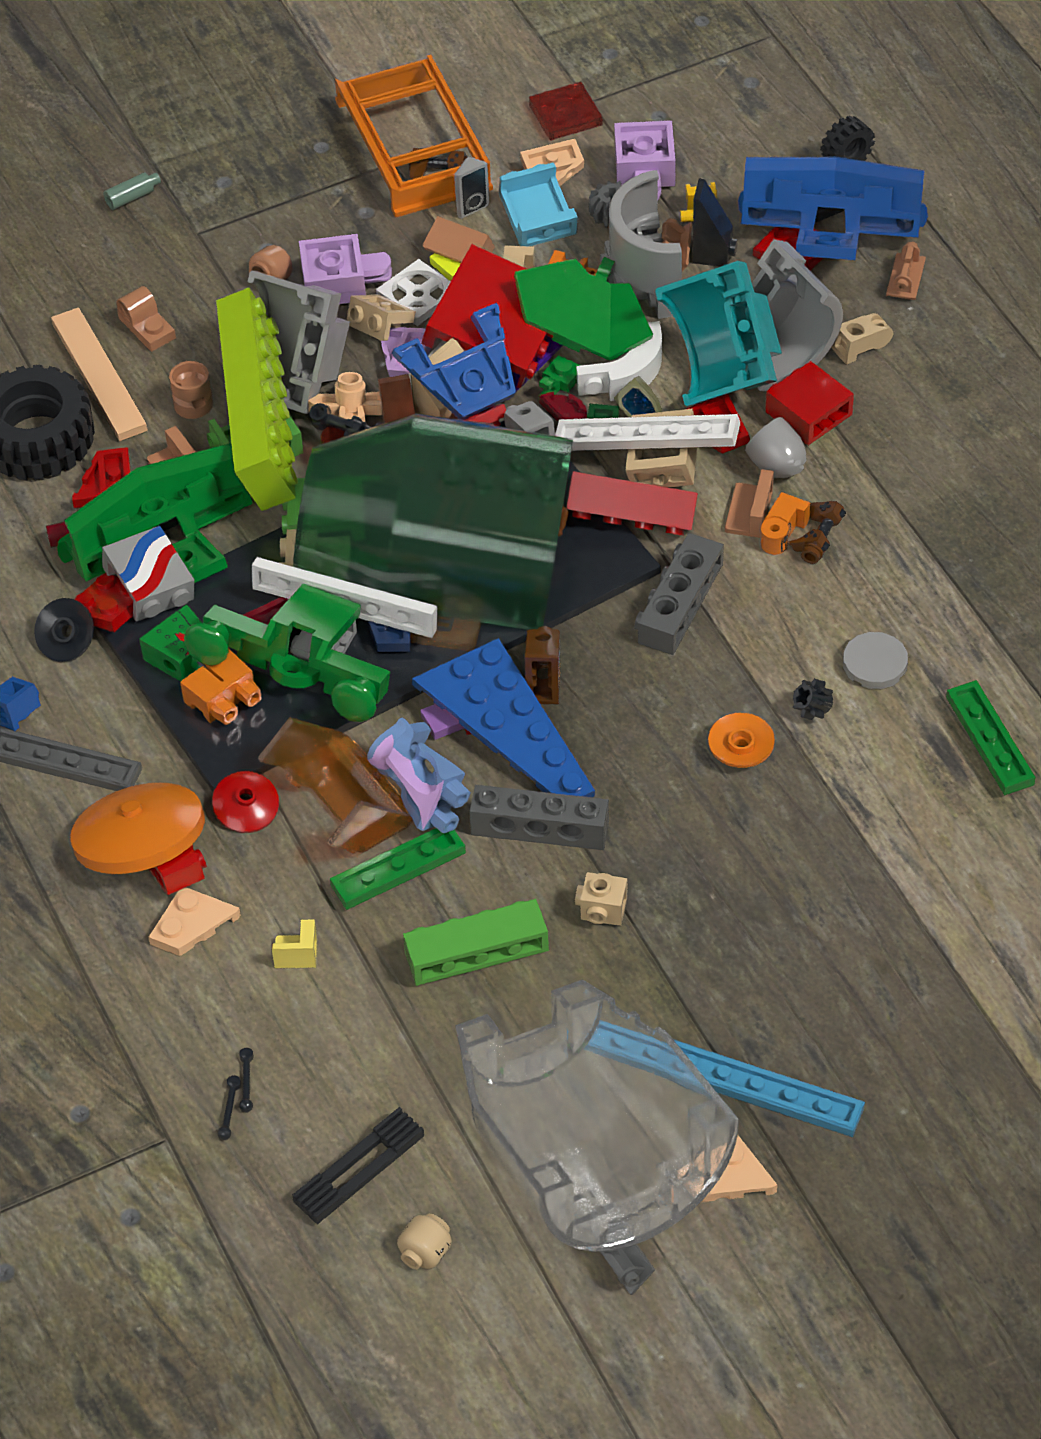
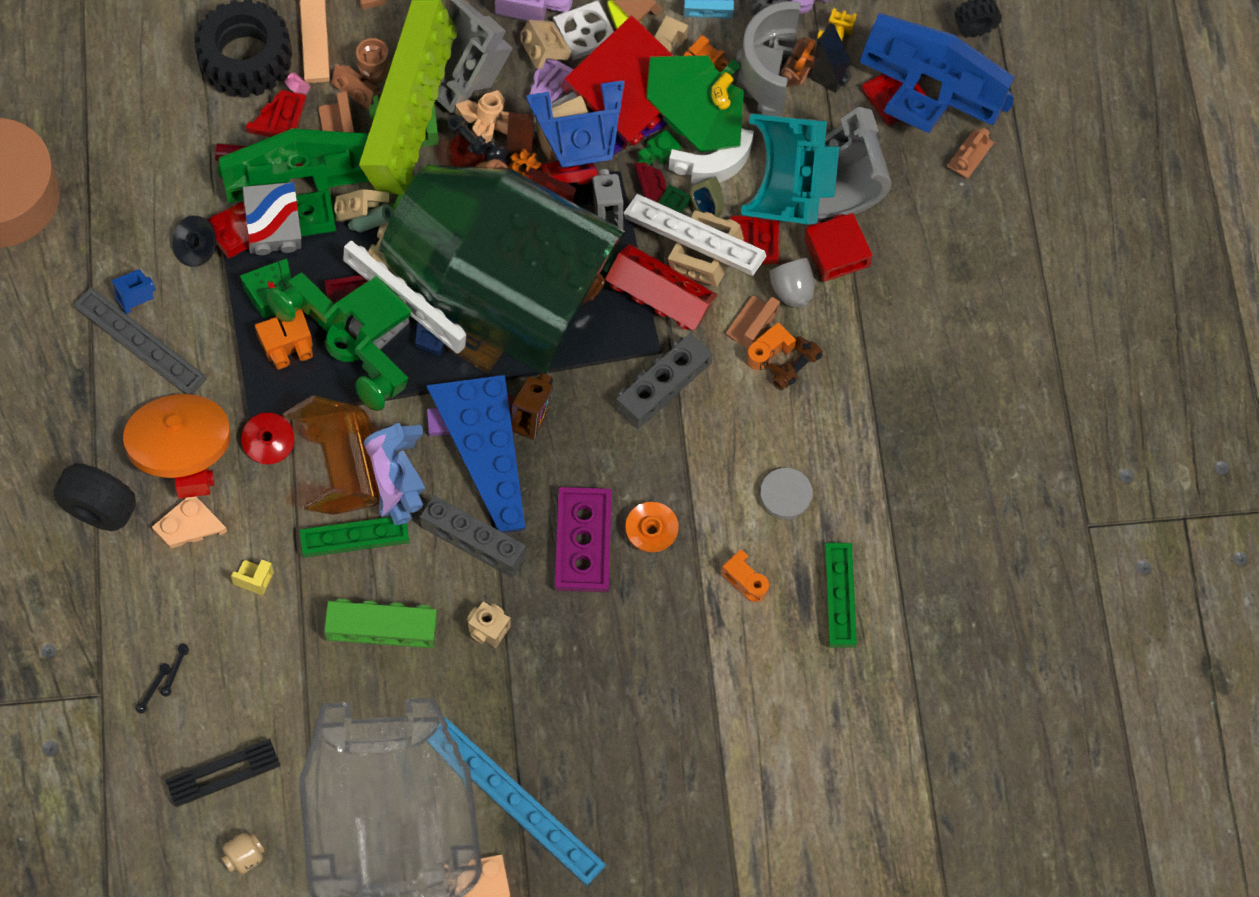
camera: 15 degrees right, 15 degrees up
(69, 919) = (94, 497): none -> black tyre
(111, 440) = (297, 84): none -> bright pink tile
(191, 425) = (350, 81): none -> nougat hinge
(244, 524) = (356, 203): none -> tan bracket
(267, 536) = (374, 218): none -> sand green cylinder
(605, 292) = (719, 92): none -> yellow arm
(657, 796) = (569, 551): none -> magenta plate
(681, 231) = (805, 56): none -> orange piece
(813, 699) = (720, 512): black gear -> none
(860, 336) = (908, 199): tan leg -> none
(874, 756) = (744, 578): none -> orange leg

